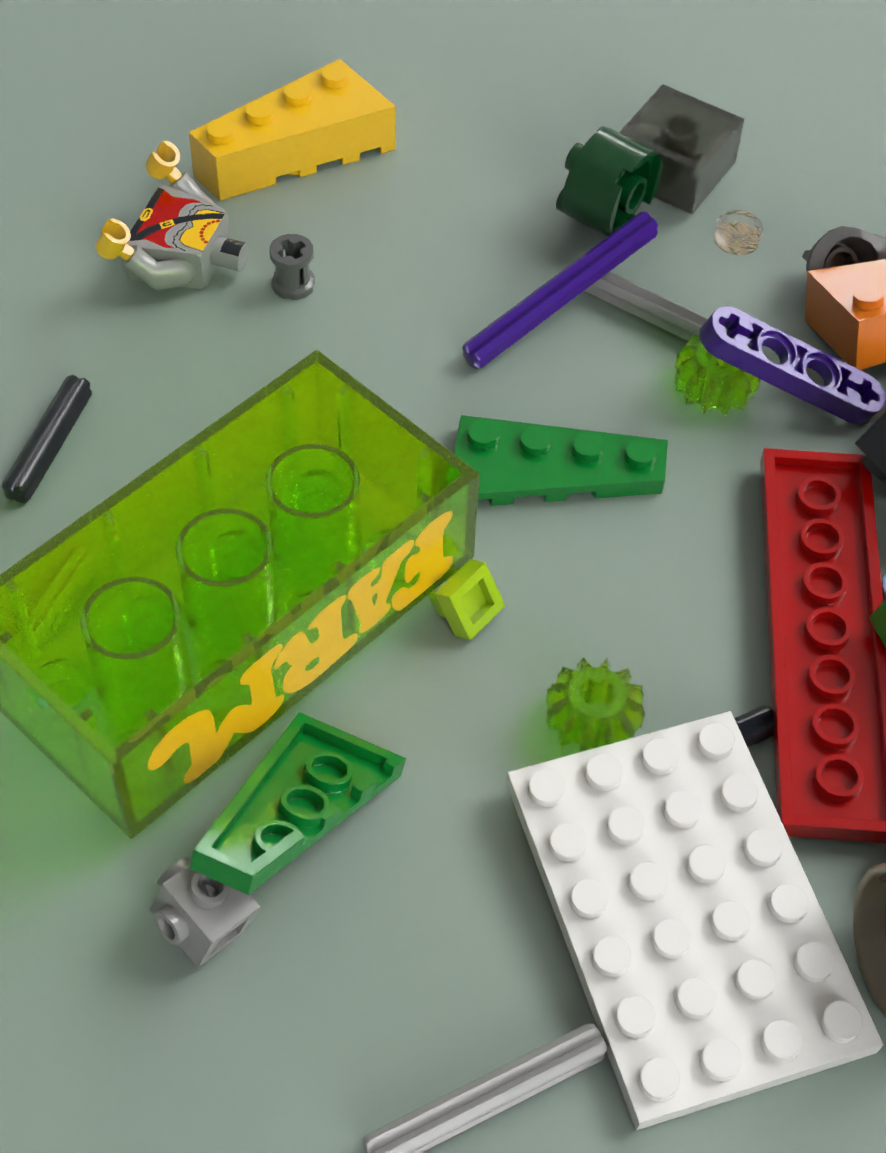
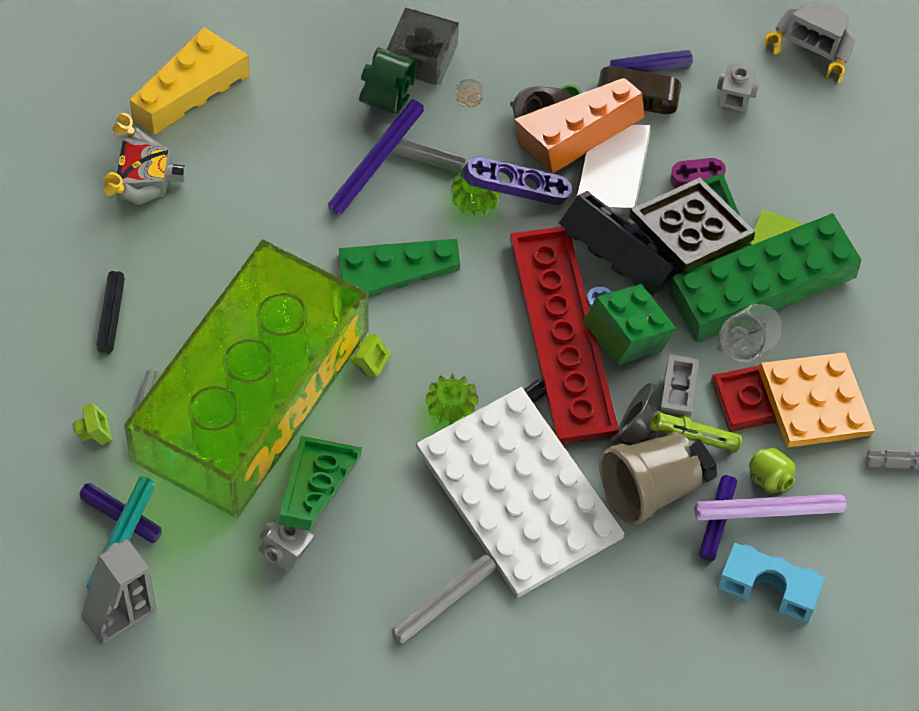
camera: 15 degrees left, 5 degrees up
(294, 265) = (215, 172): dark grey bush -> none

